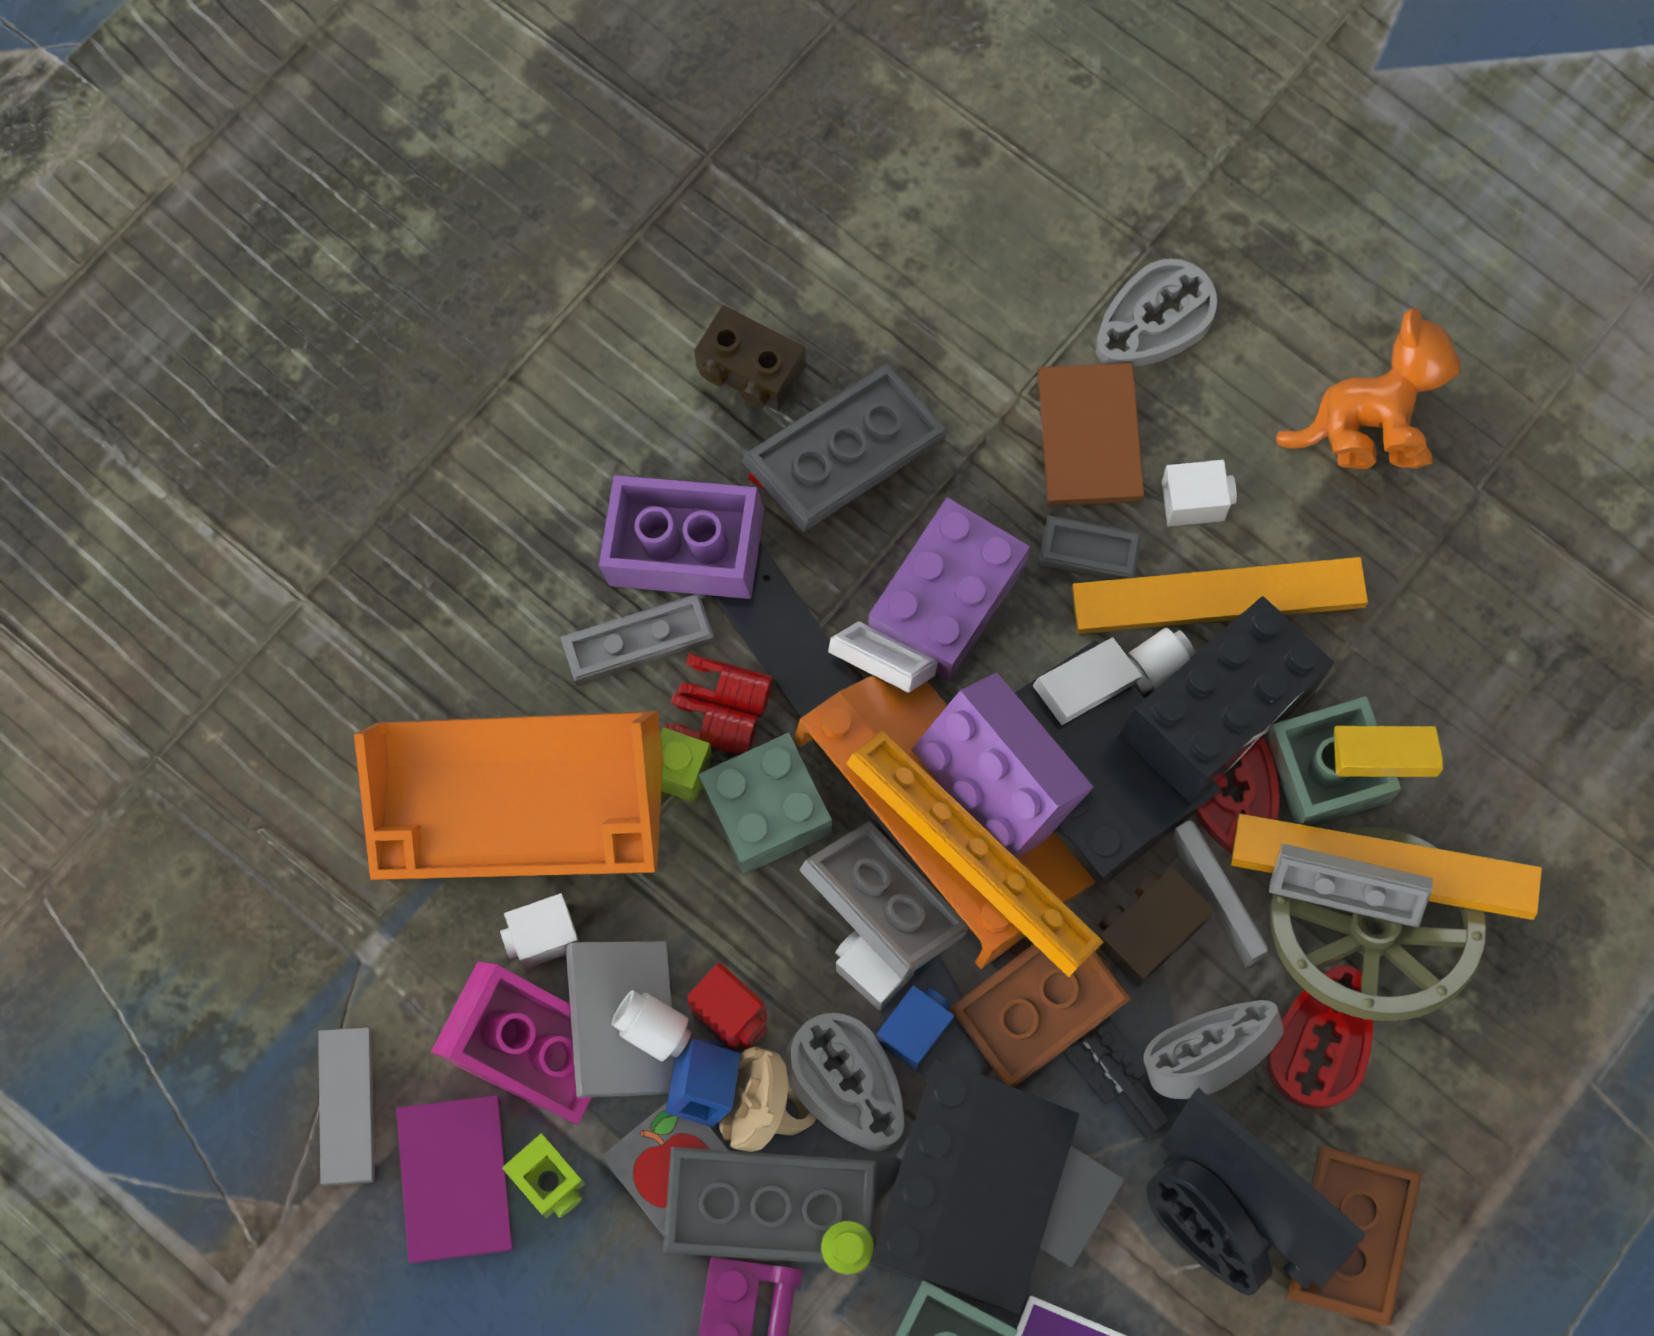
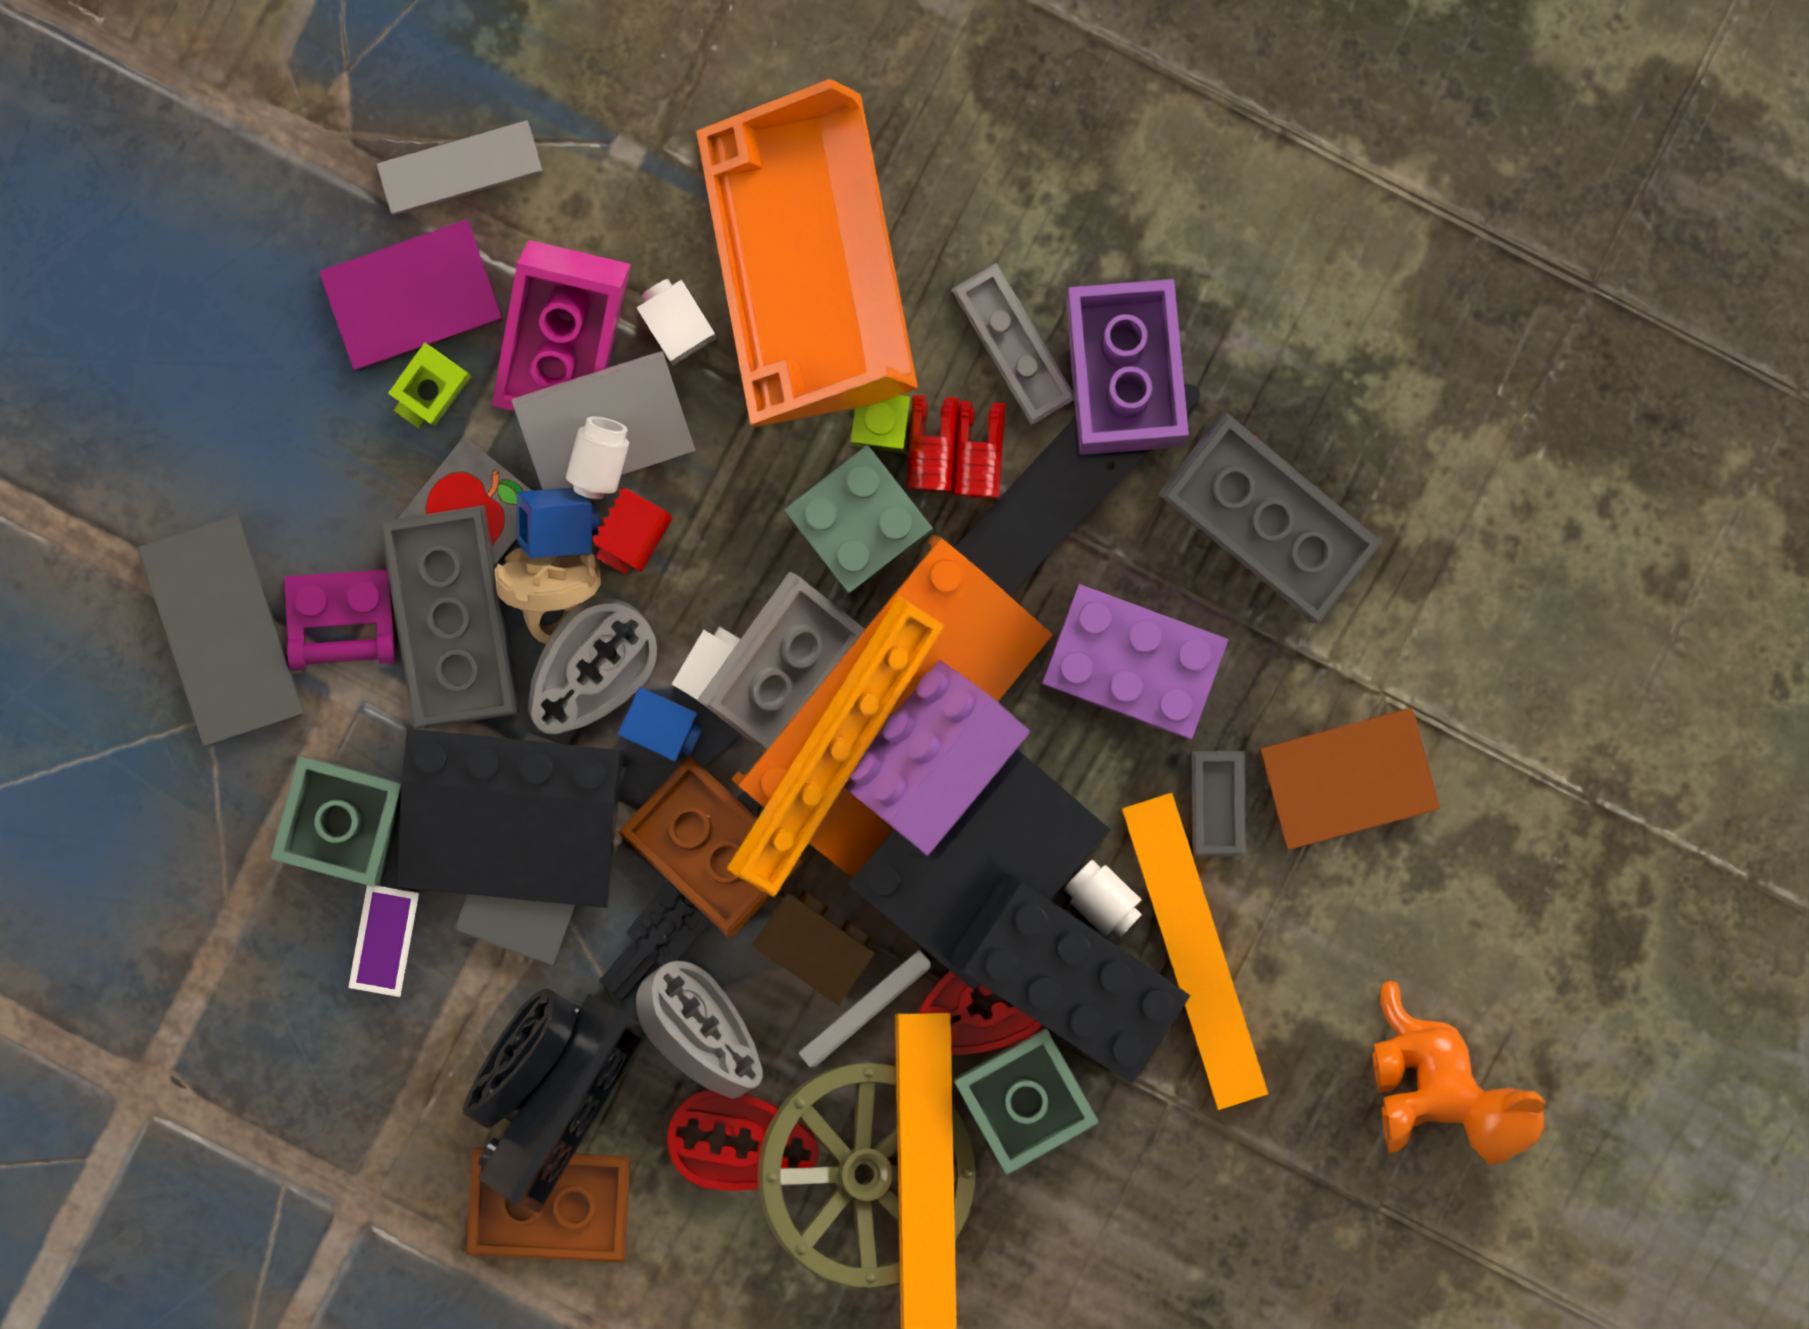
camera: 75 degrees right, 15 degrees up
(749, 359) = (1352, 391): dark brown brick -> none
(847, 1247) = (422, 702): lime plate -> none
(883, 656) = (1042, 608): white tile -> none
(1087, 681) = (1055, 828): white tile -> none
(1144, 293) = (1493, 852): light grey piece -> none
(1197, 492) = (1302, 907): white brick -> none
(1350, 885) = (893, 1139): light grey tile -> none
(1387, 751) = (1041, 1152): yellow slope -> none

